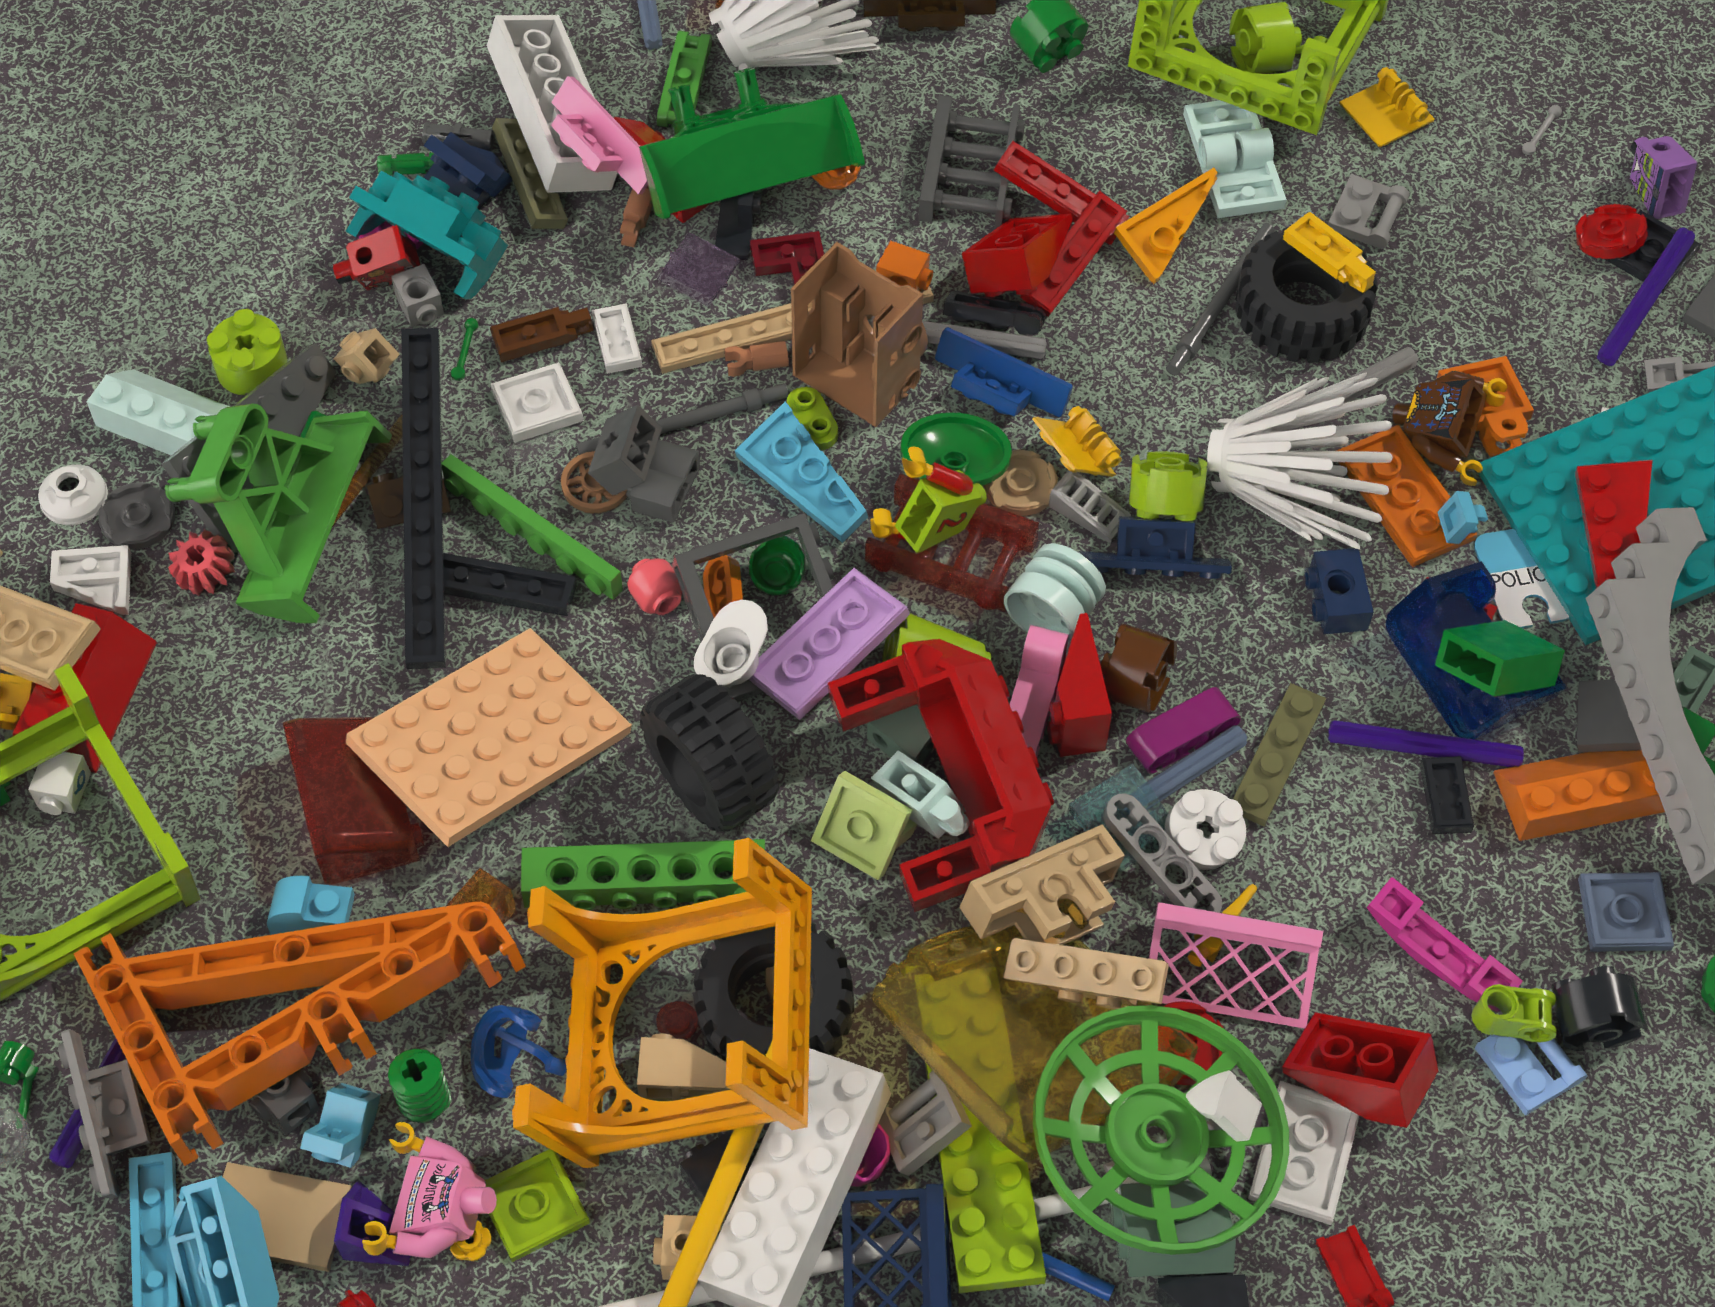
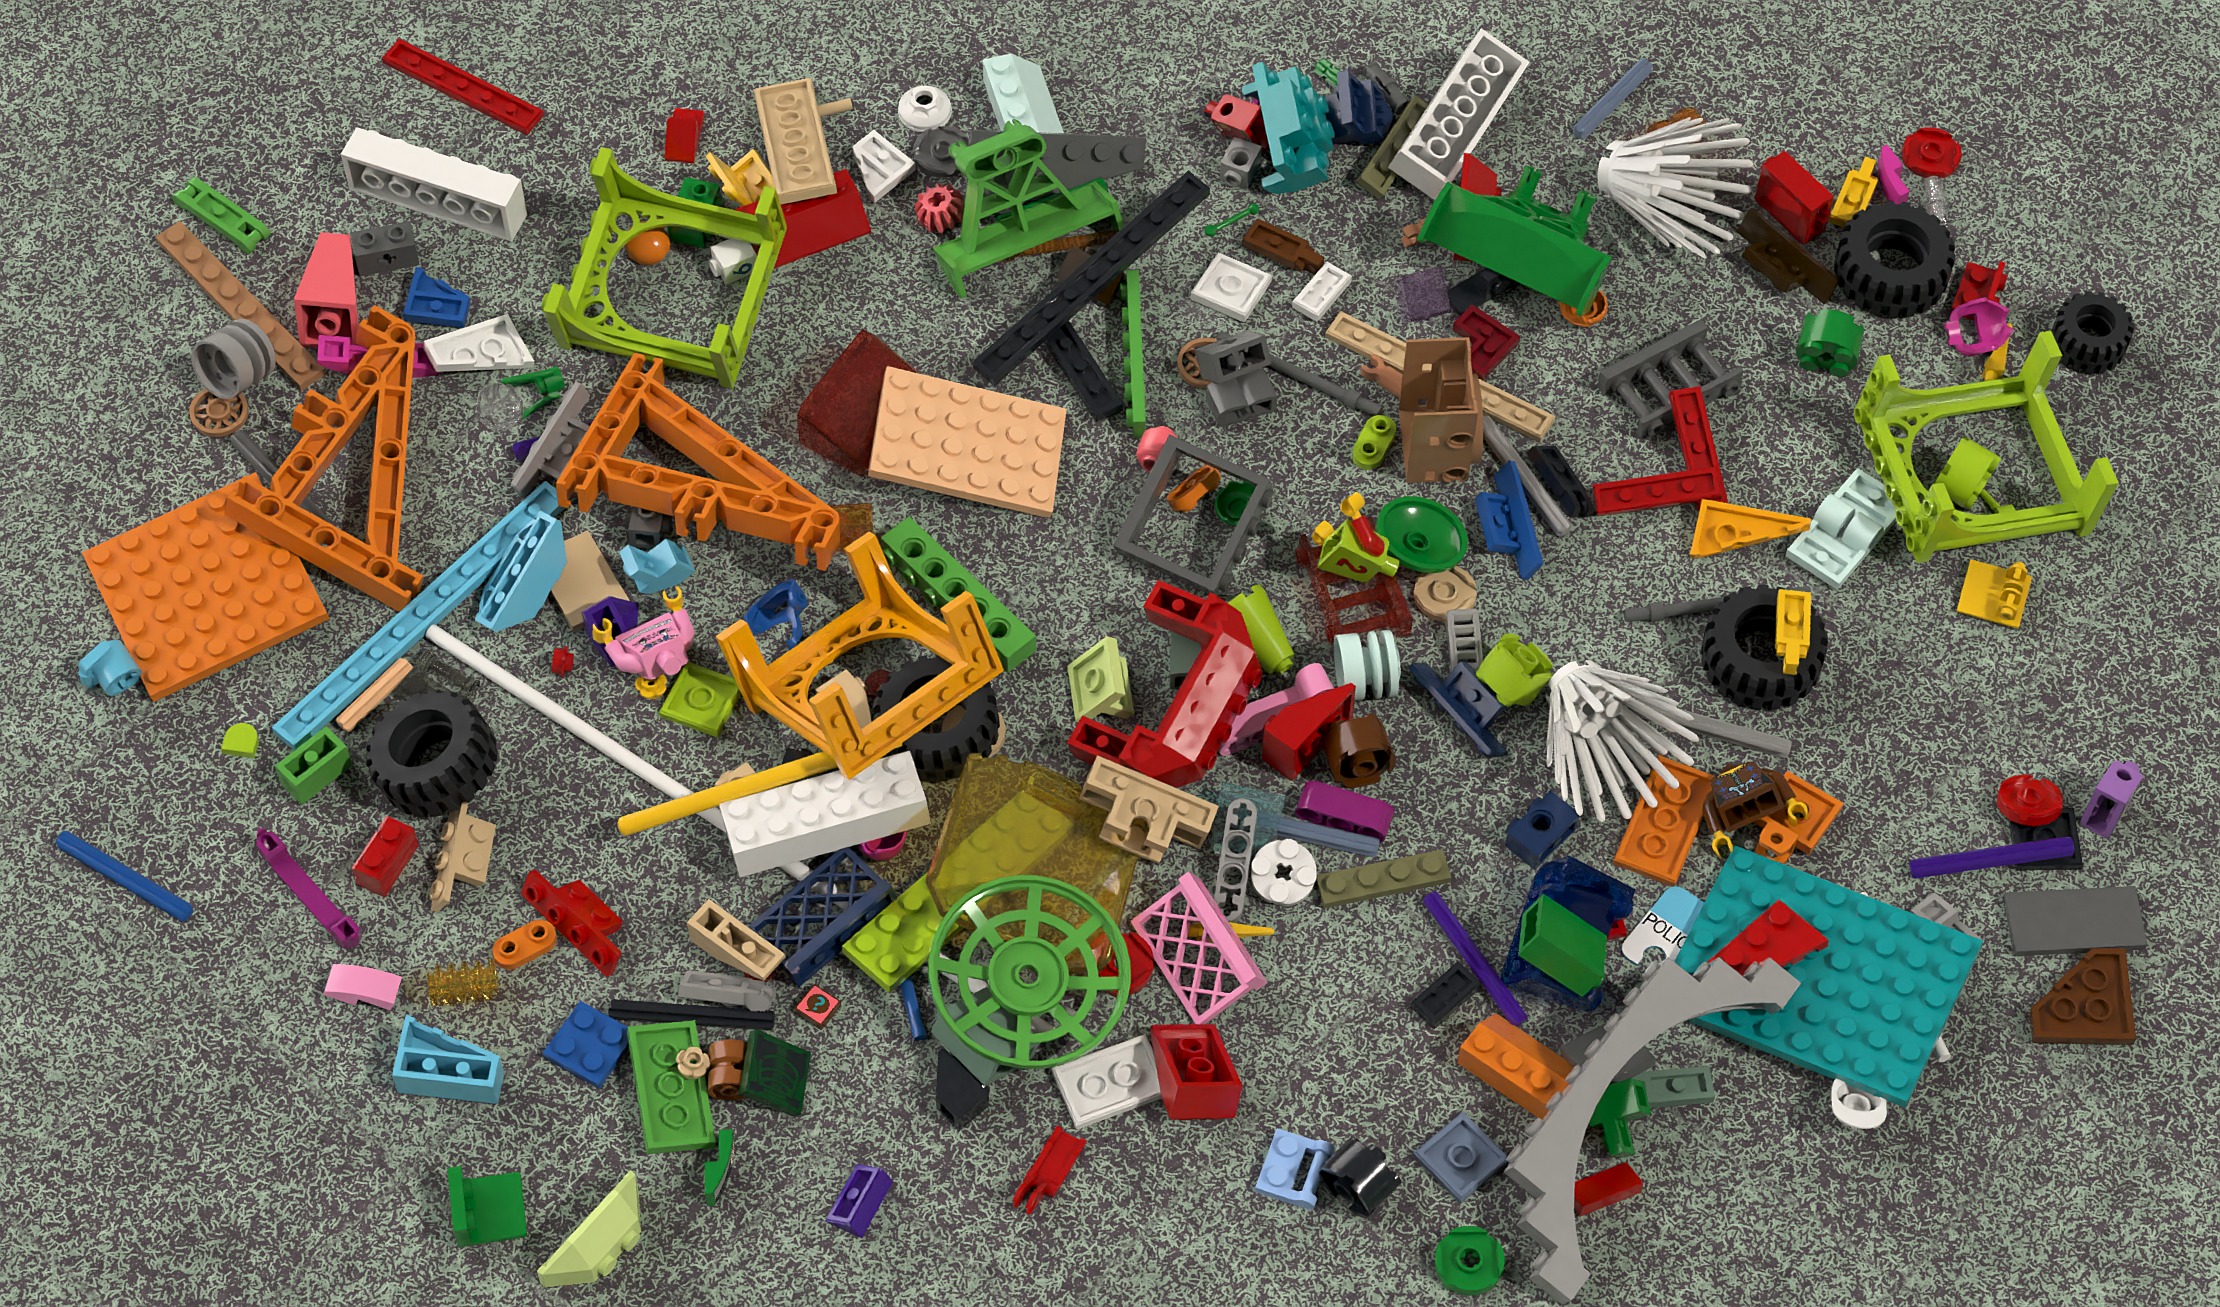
camera: 50 degrees right, 0 degrees up
(245, 351) = (1105, 108): lime brick -> none
(306, 905) = (770, 441): medium azure brick -> none
(365, 356) = (1176, 169): tan brick -> none
(419, 1085) = (713, 582): green piece -> none
(596, 135) = (1441, 150): bright pink bracket -> none
(685, 68) = (1570, 169): bright green plate -> none
(709, 752) = (1054, 557): black tyre -> none
(732, 644) = (1138, 514): white piece -> none
(795, 466) = (1325, 457): medium azure wing -> none
(827, 642) = (1196, 563): lavender tile -> none
(905, 266) = (1533, 404): orange brick -> none
(928, 1129) = (915, 855): light grey plate -> none
(929, 796) = (1145, 693): light aqua brick -> none
(1016, 255) = (1616, 457): red slope -> none
(1081, 443) = (1499, 599): yellow hinge -> none
(1087, 973) = (1100, 864): tan bracket -> none
(1227, 1104) = (1072, 993): white tile -> none
(1357, 206) = (1885, 632): light grey plate -> none
(1434, 946) = (1326, 1061): dark pink slope -> none
(1460, 517) = (1670, 860): medium azure tile -> none
(1524, 1011) = (1314, 1134): lime piece -> none
(1530, 147) = (2060, 704): light grey hinge -> none

